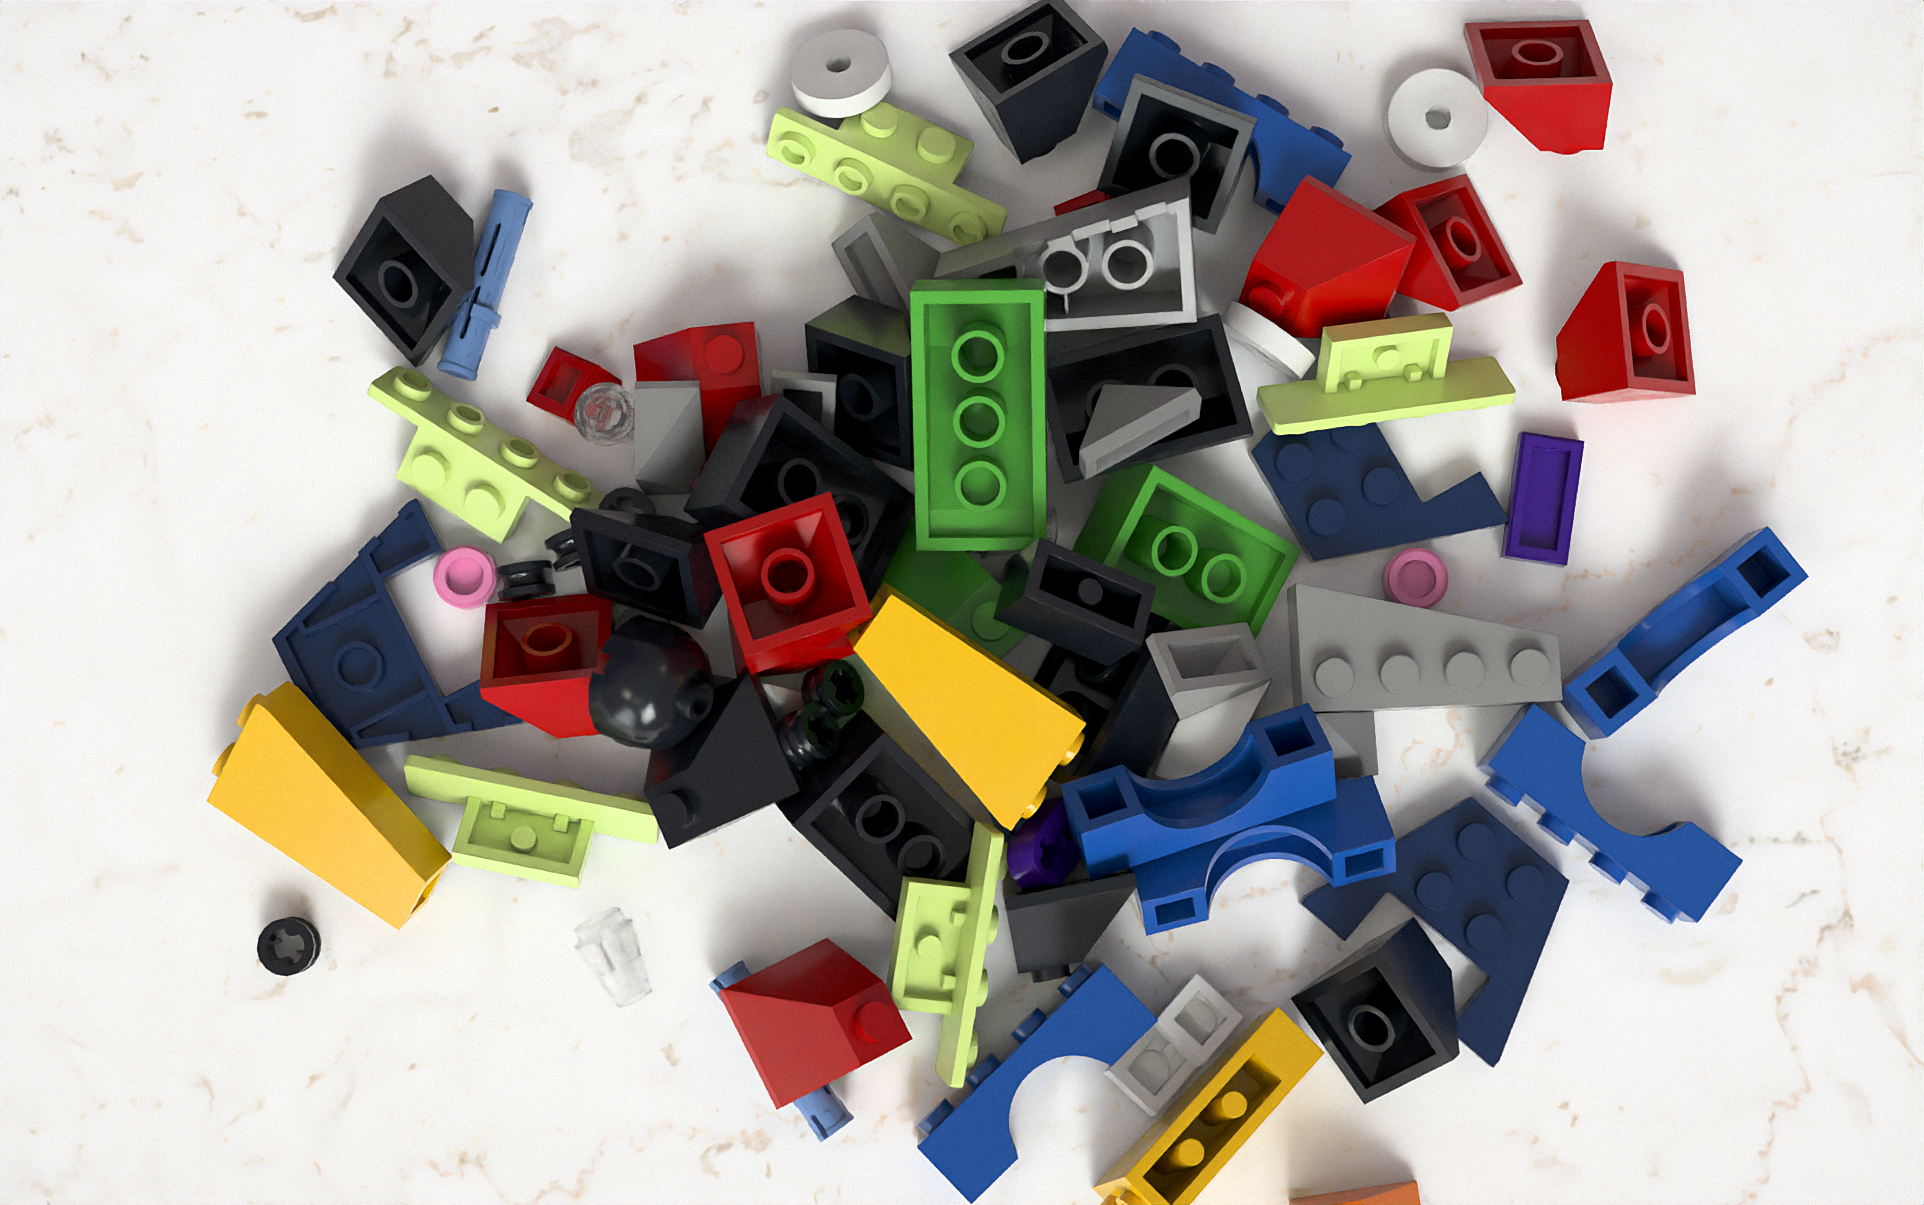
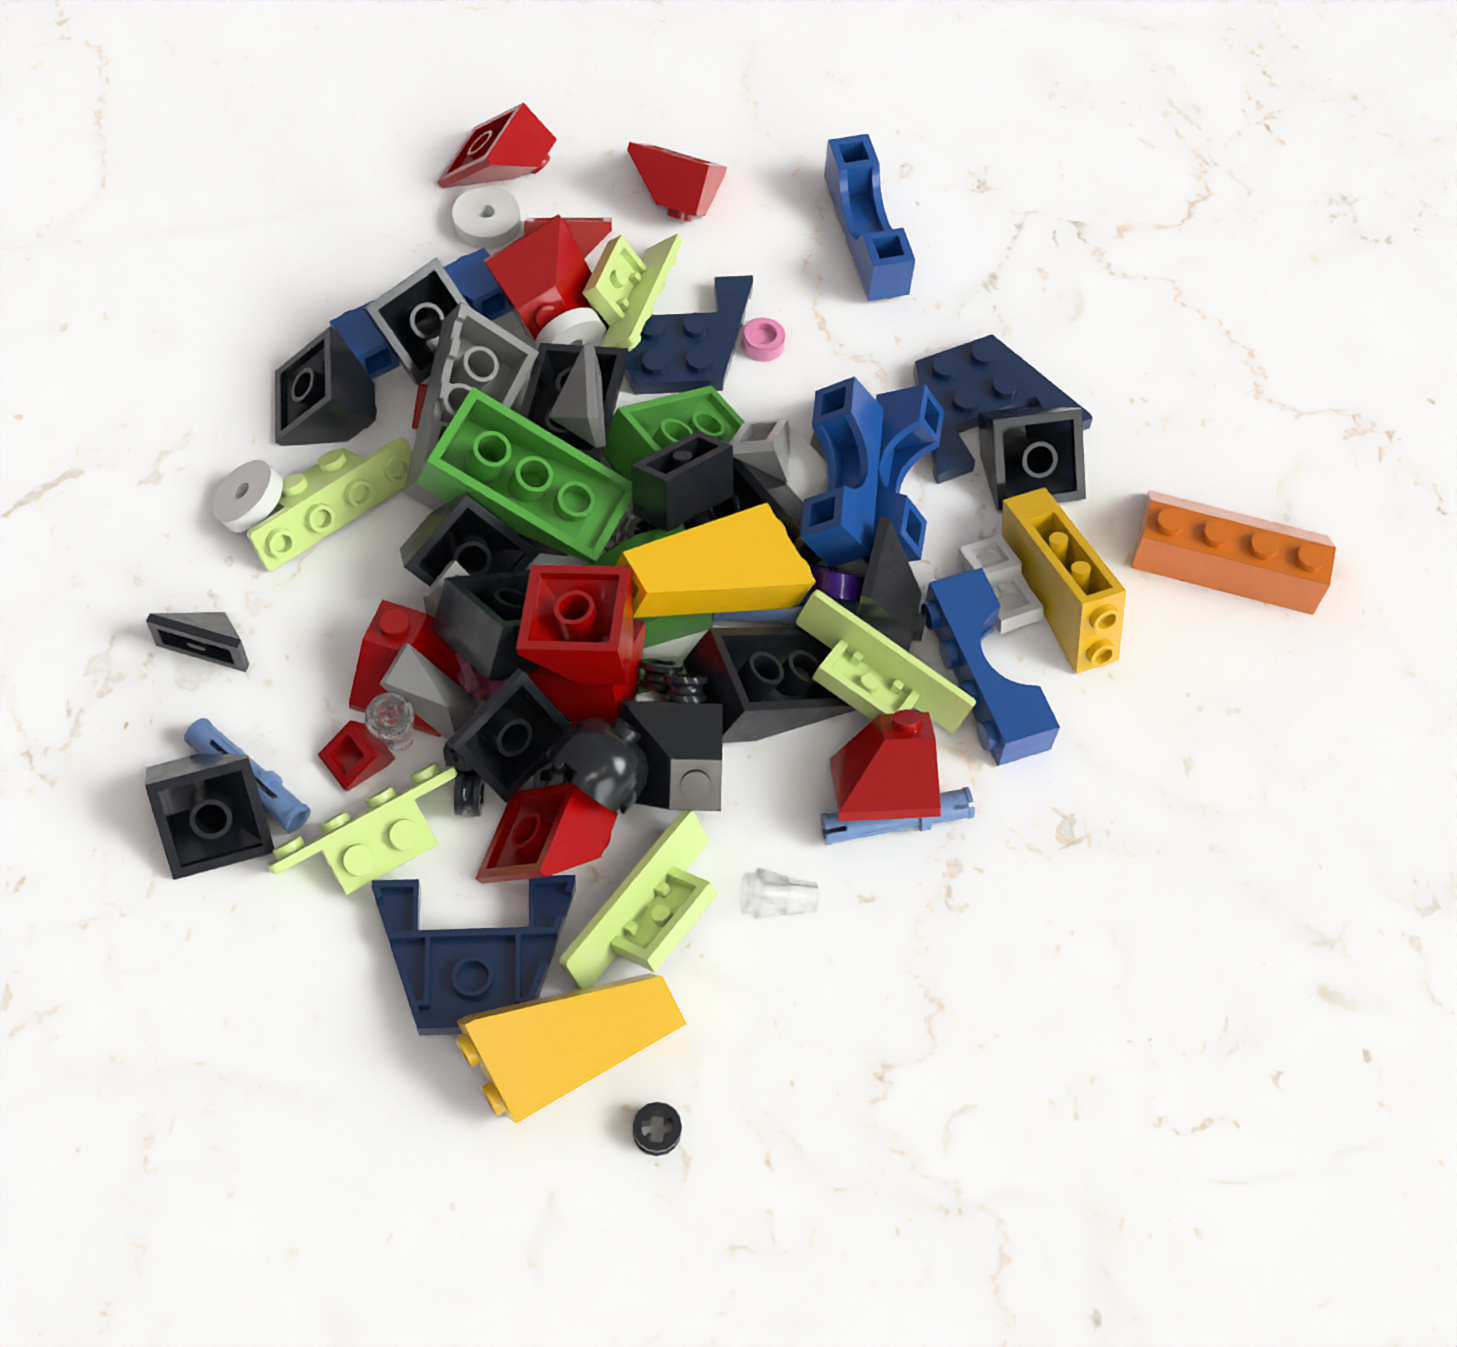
camera: 70 degrees left, 25 degrees down
(466, 577) = (447, 882): bright pink tile -> none
(525, 580) = (473, 837): black bush -> none
(640, 133) = (200, 635): none -> black slope
(885, 261) = (385, 528): light grey slope -> none
(1399, 657) = (808, 350): light grey wedge -> none
(1542, 499) = (744, 255): dark purple tile -> none
(1542, 765) = (915, 317): blue arch -> none

